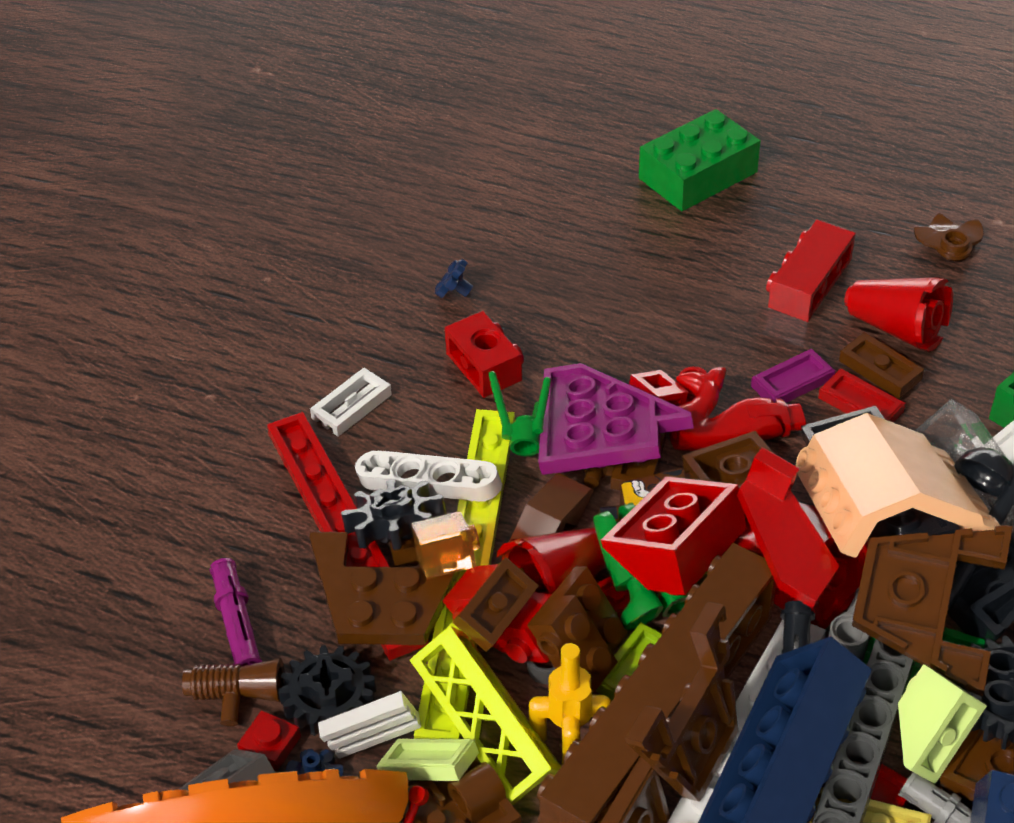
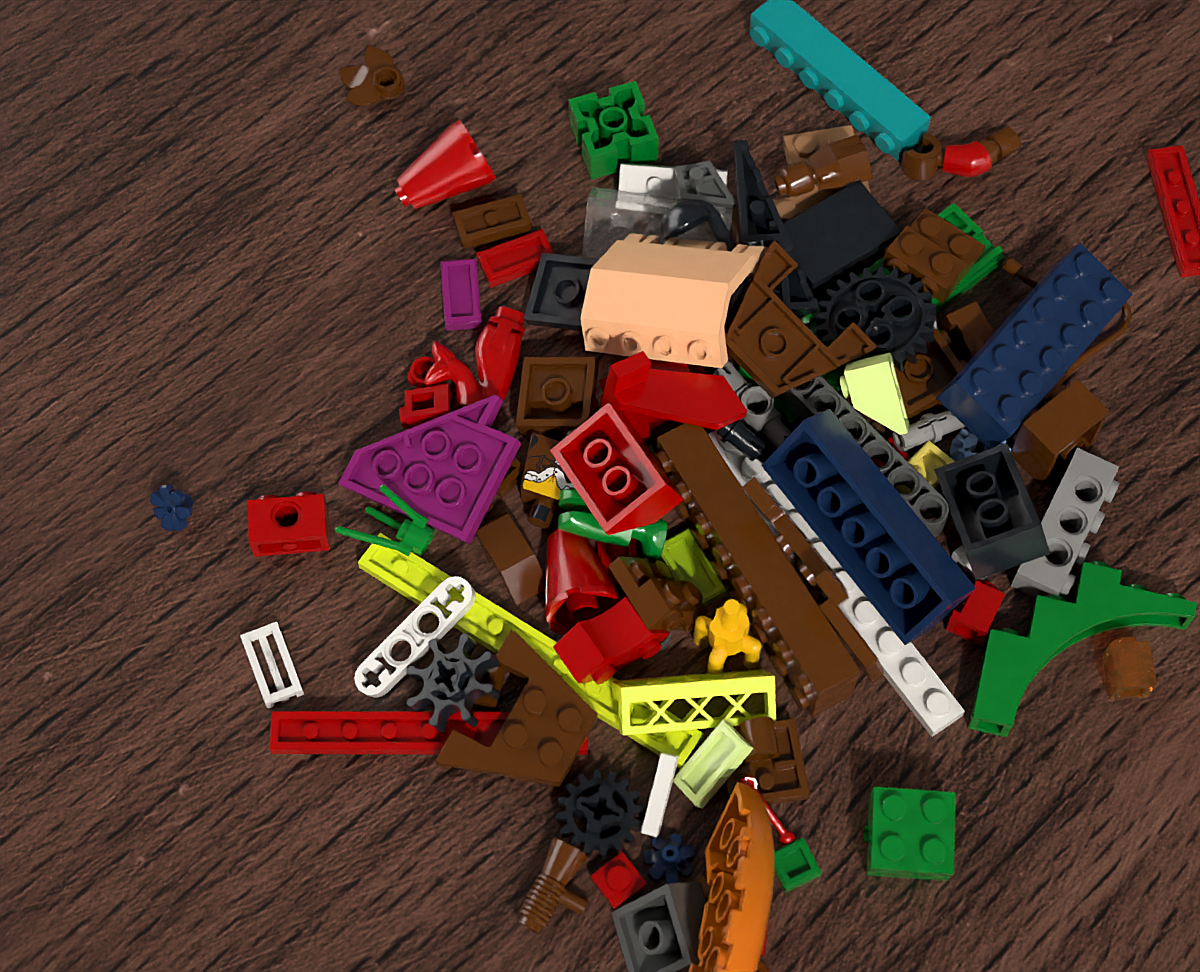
camera: 65 degrees left, 20 degrees up
(232, 601) = (475, 860): magenta pin -> none
(445, 544) = (529, 655): clear orange brick -> none
(495, 604) = (622, 642): reddish brown plate -> none
(699, 159) = (148, 217): green brick -> none
(810, 270) = (350, 208): red brick -> none

